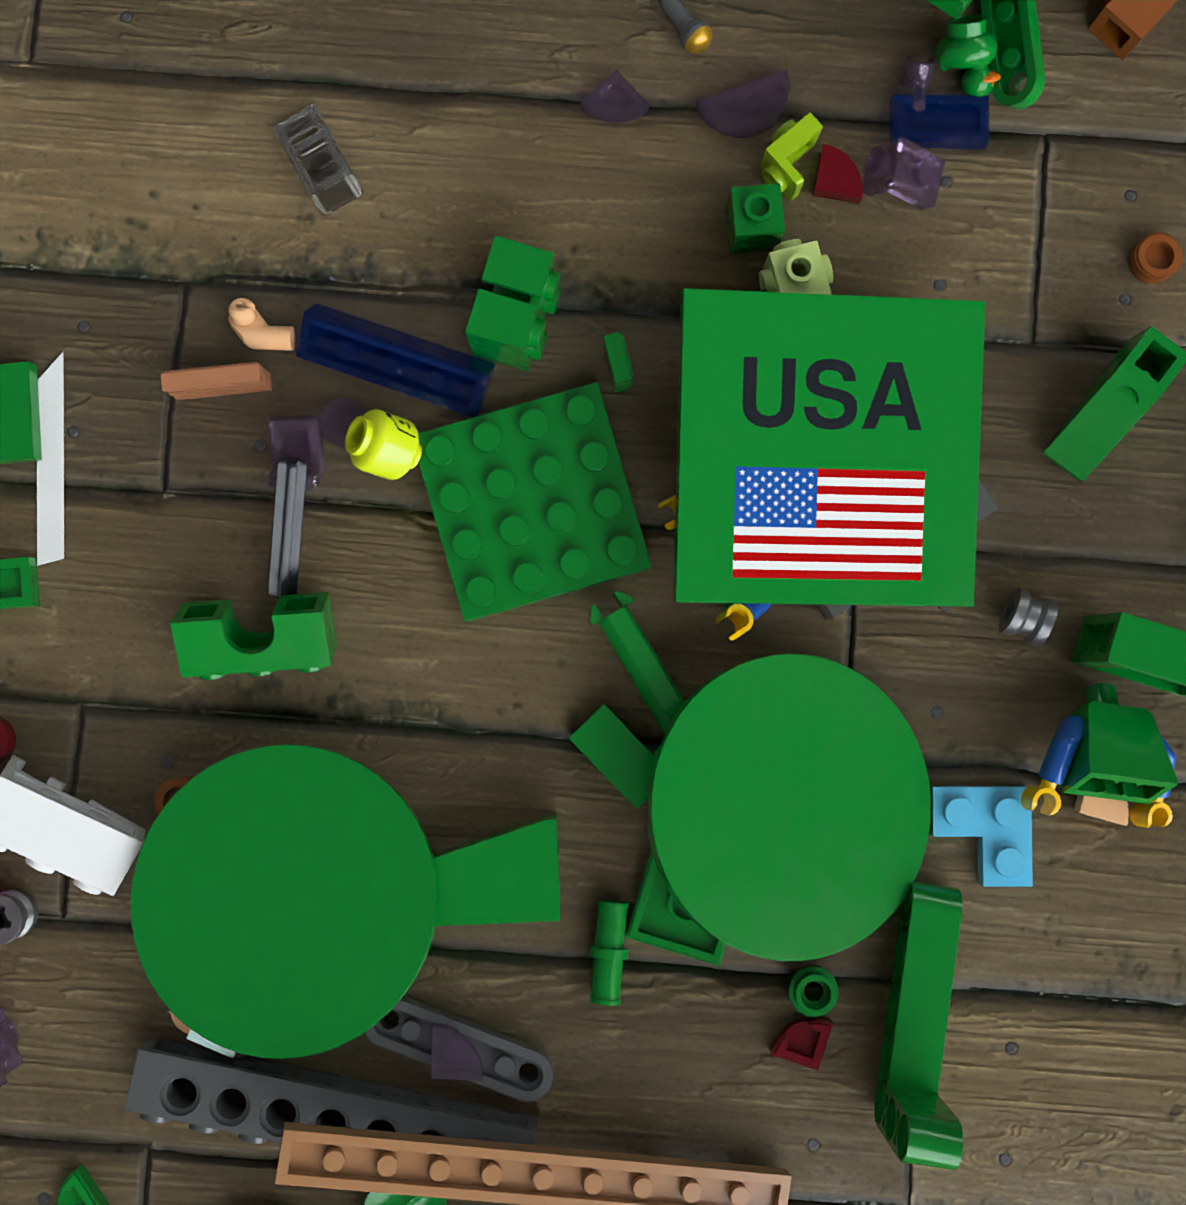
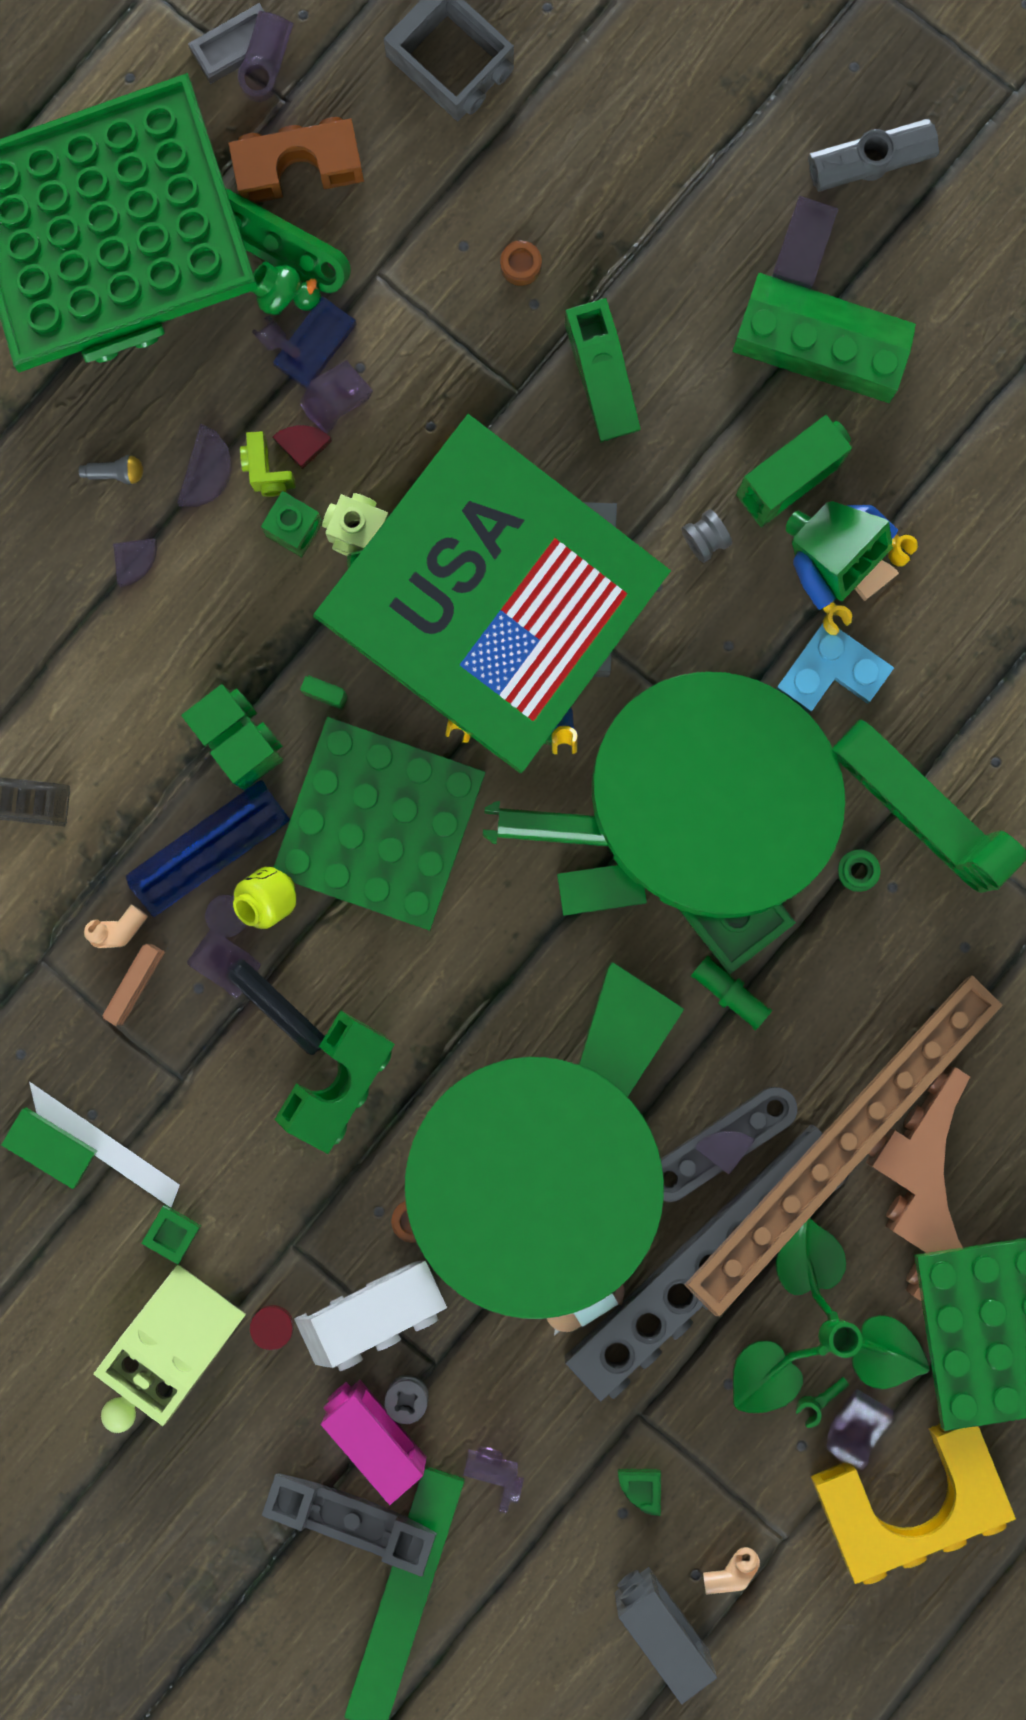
camera: 50 degrees left, 0 degrees up
(803, 1042) = (889, 902): dark red tile -> none

